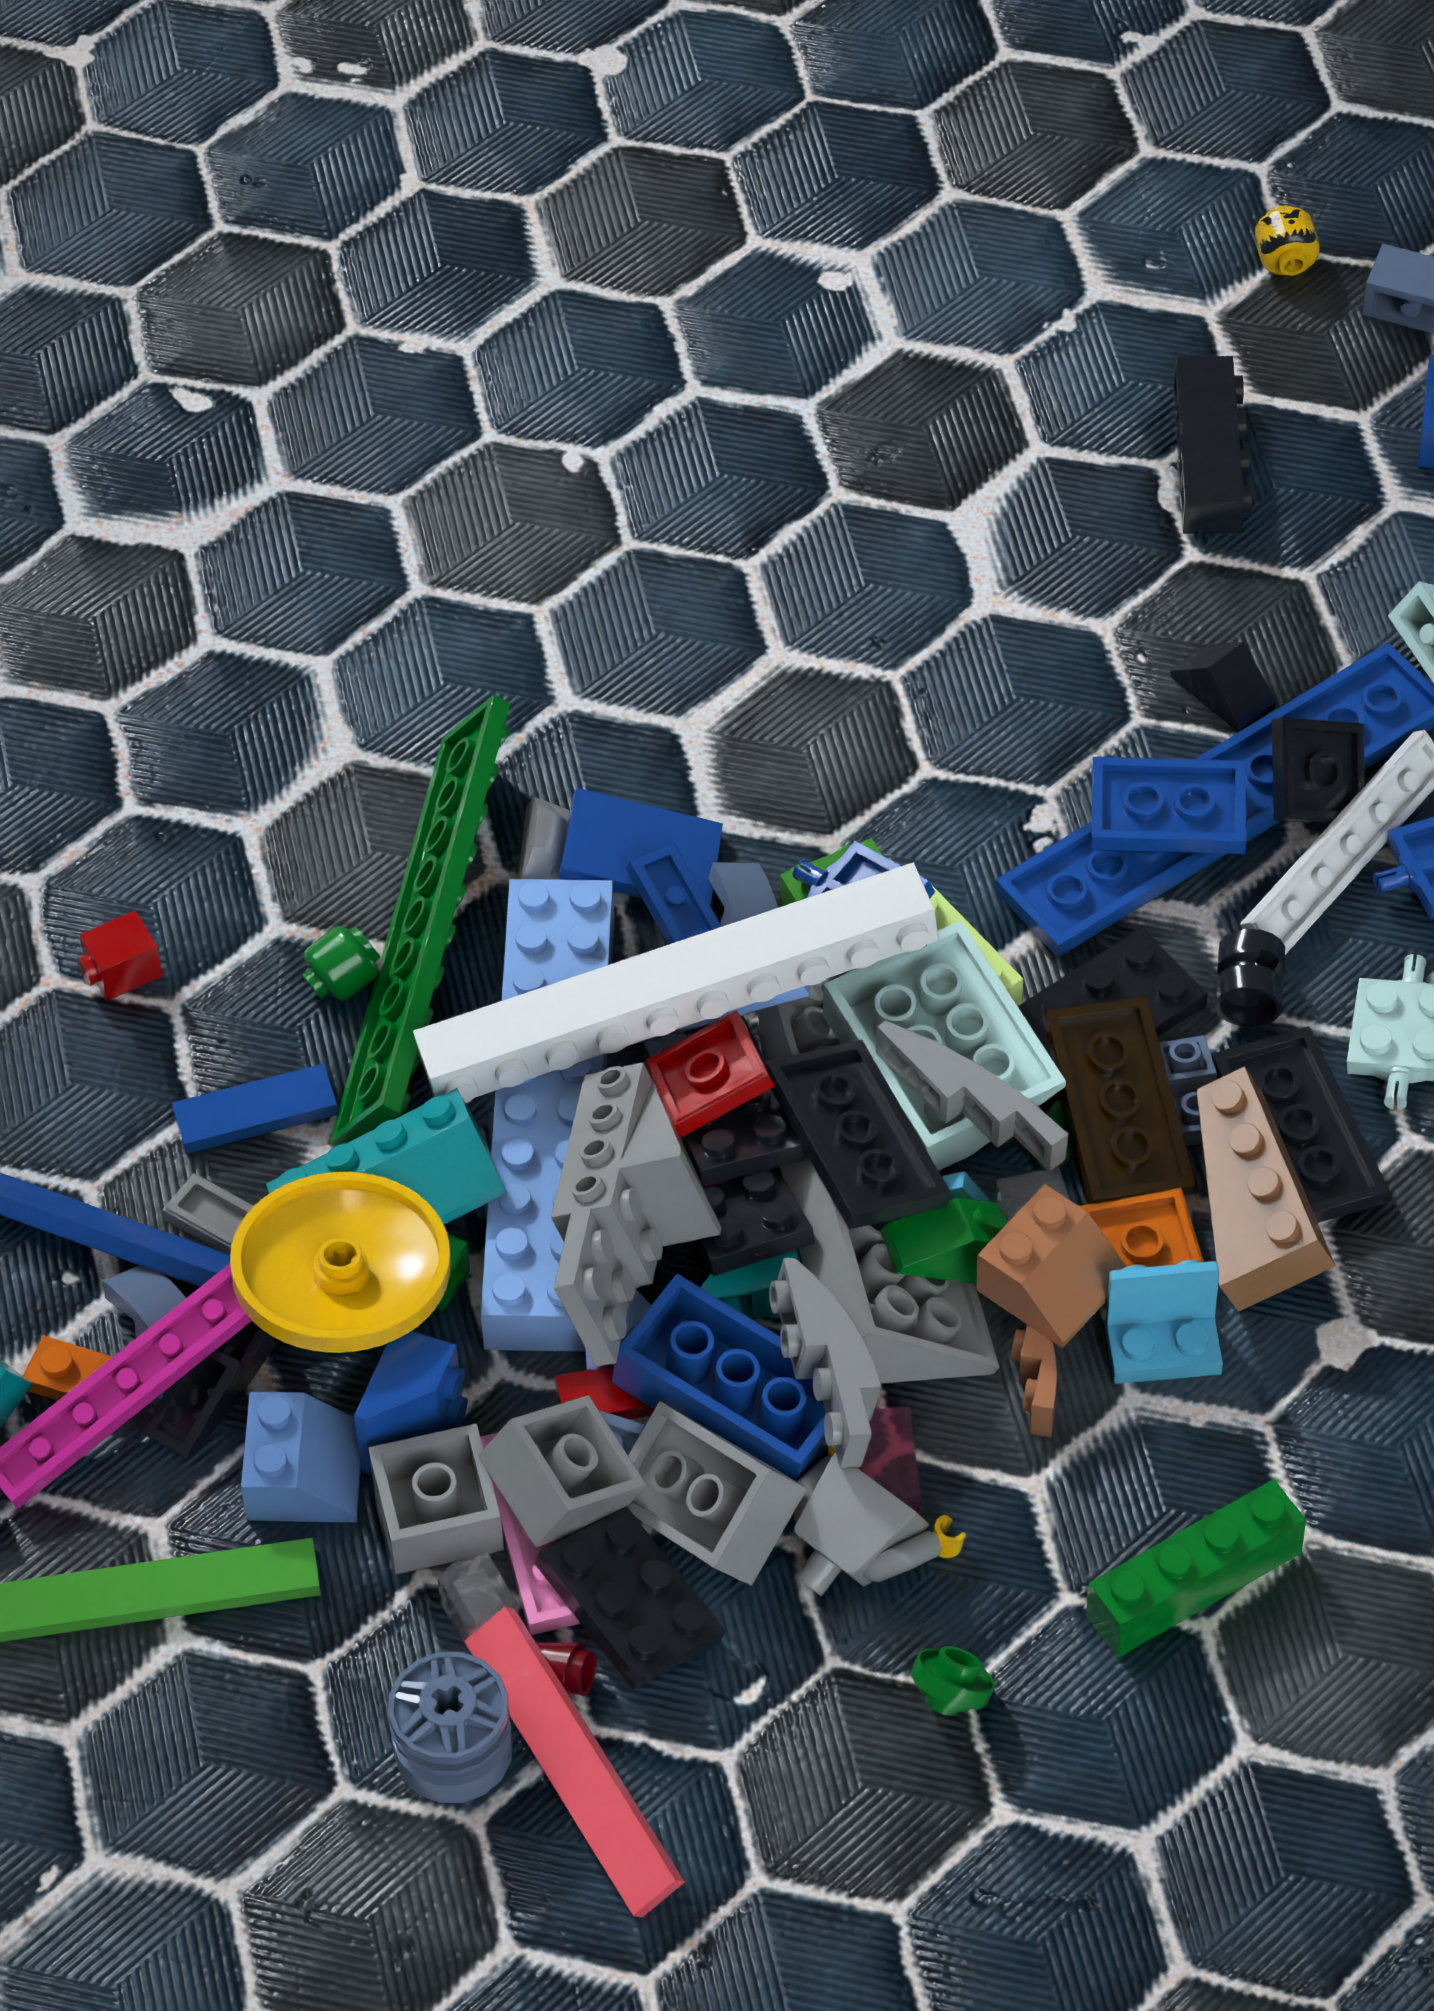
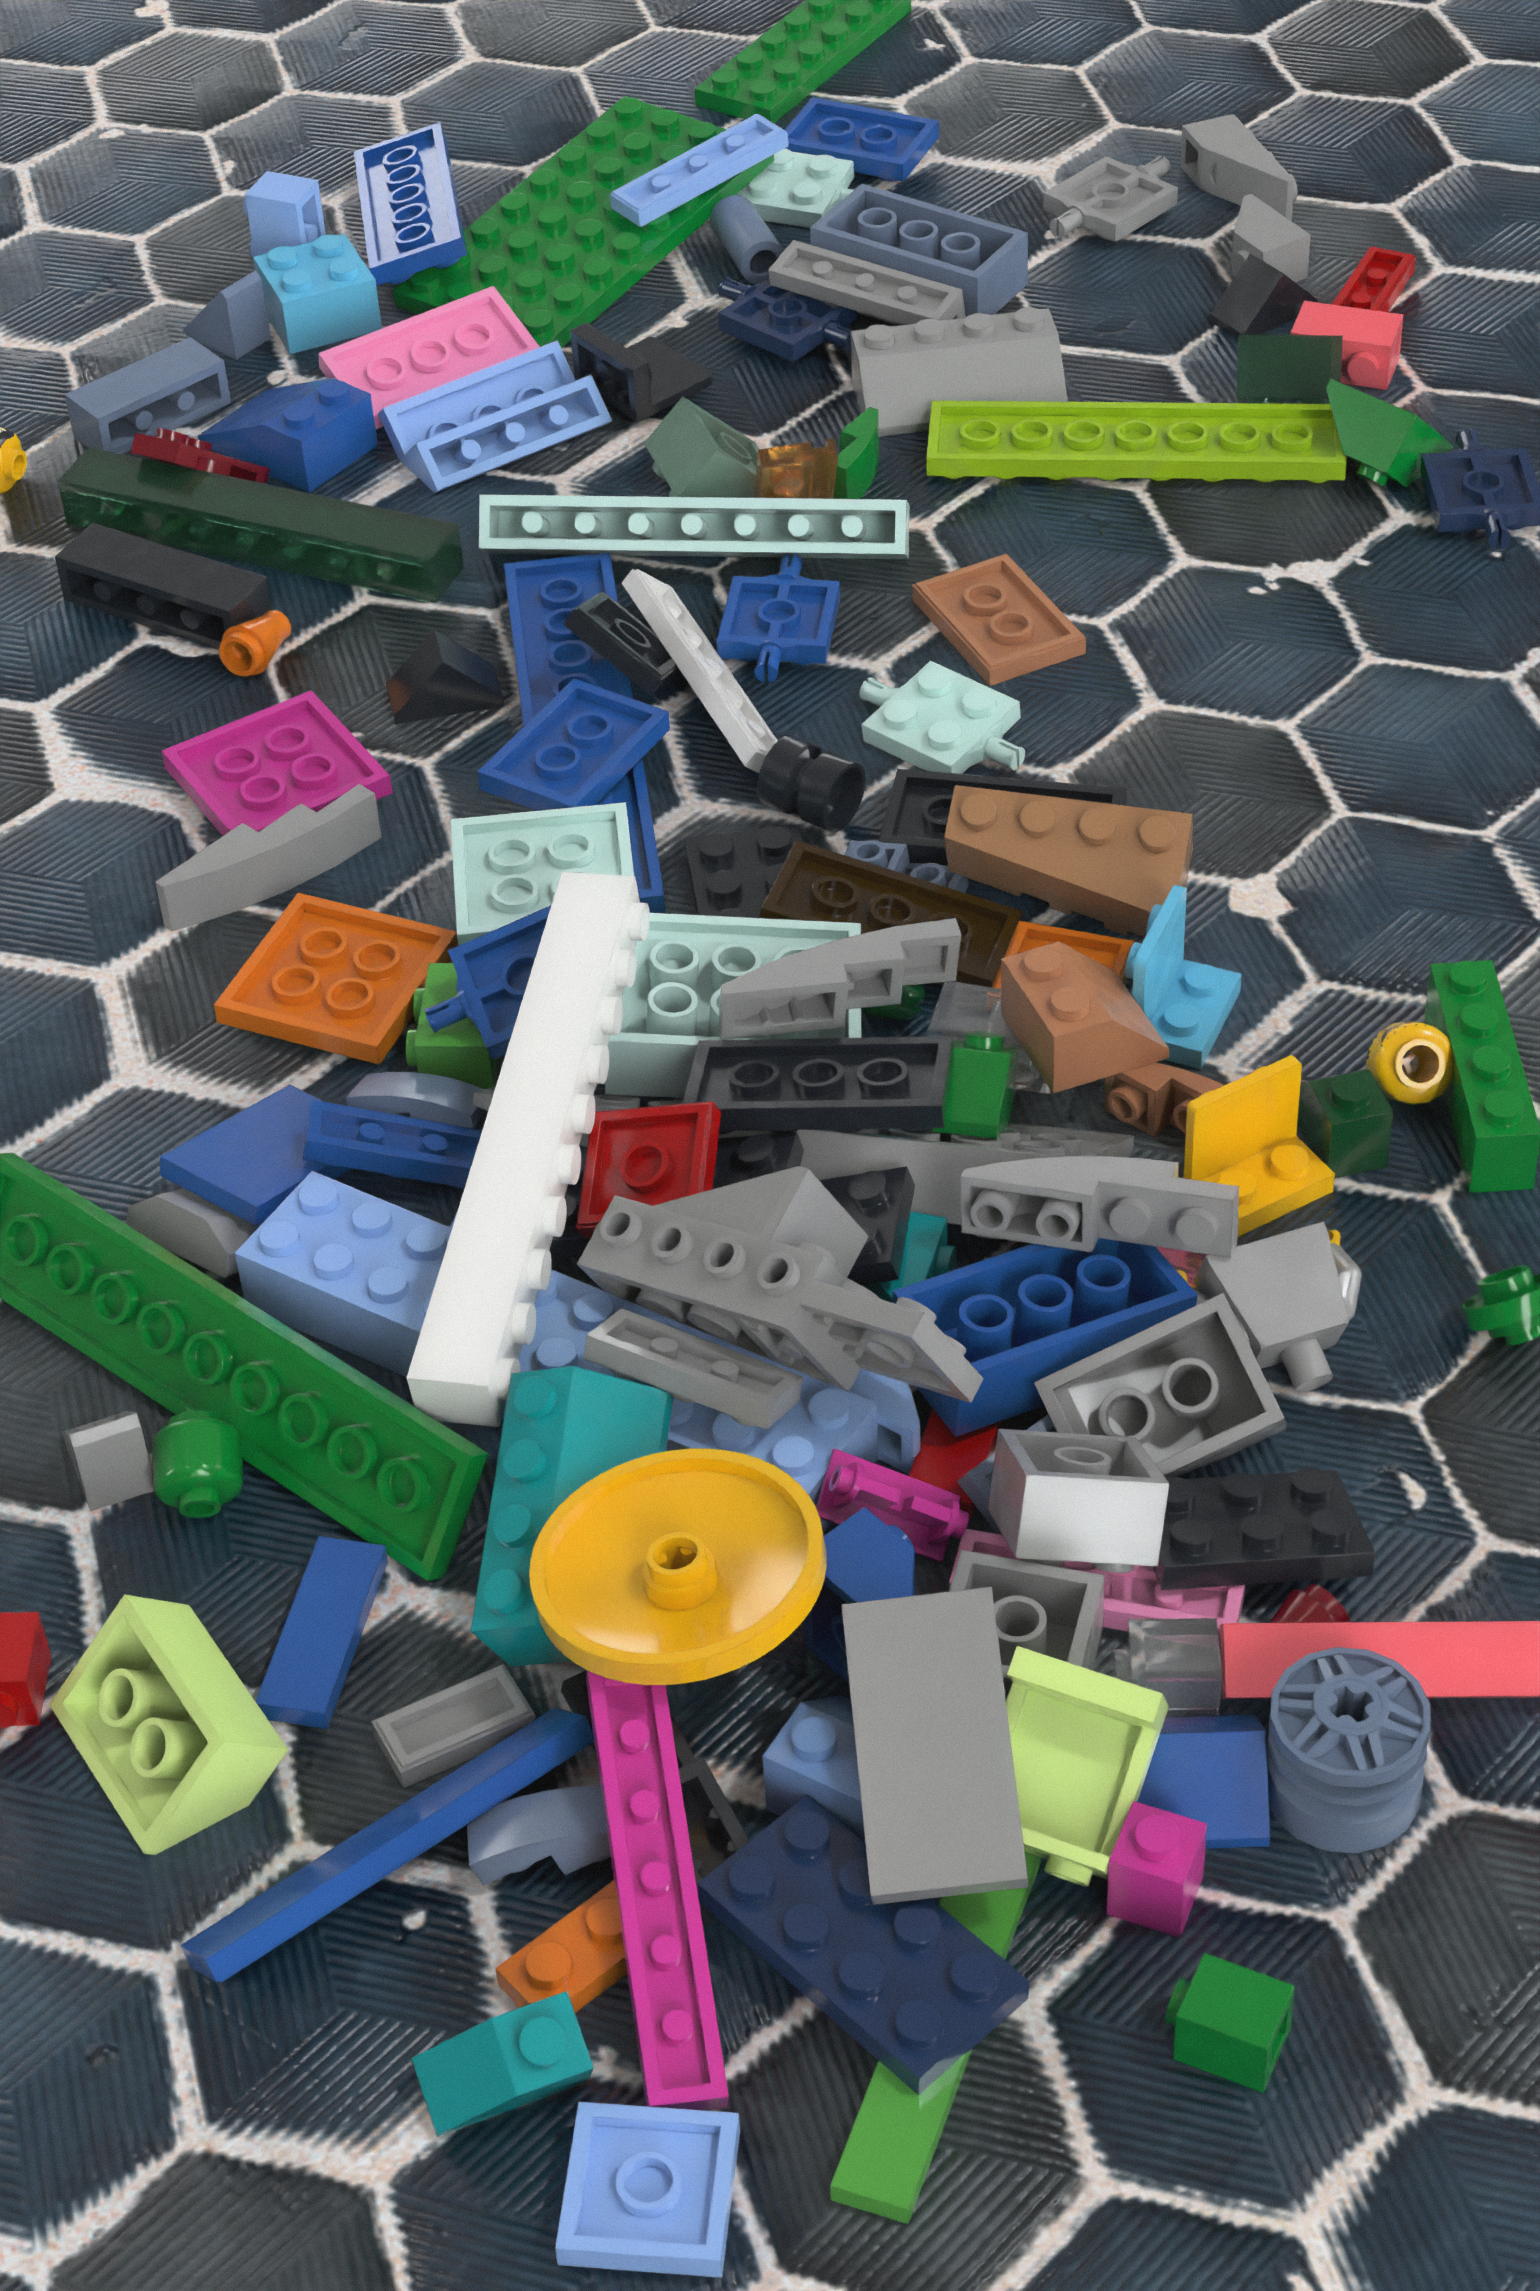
camera: 60 degrees left, 10 degrees down
(130, 1064) = (166, 1723): none -> yellowish green slope
(158, 1520) = (887, 1973): none -> dark blue plate
(208, 1752) = (1231, 2021): none -> green brick
(285, 1475) = (933, 1746): none -> light grey tile
(302, 1659) = (1156, 1868): none -> dark pink brick
(322, 903) = (110, 1459): none -> light grey slope
(329, 1565) = (1077, 1759): none -> yellowish green panel
(387, 1634) = (1215, 1775): none -> blue slope
(519, 1364) = (917, 1508): none -> dark pink hinge
(529, 1189) = (693, 1368): none -> light grey plate
(848, 789) = (334, 978): none -> orange plate
(957, 689) = (259, 865): none -> light grey slope
(1005, 1449) = (1250, 1141): none -> yellow bracket
(1011, 859) = (515, 860): none -> light aqua plate
(1046, 633) = (272, 764): none -> dark pink plate
(1094, 1491) = (1346, 1122): none -> dark green slope
(1170, 1507) = (1431, 1062): none -> yellow head
(1187, 536) = (252, 644): none -> orange cone
(1332, 461) = (263, 524): none -> clear green brick
(1371, 370) = (196, 454): none -> dark red wing

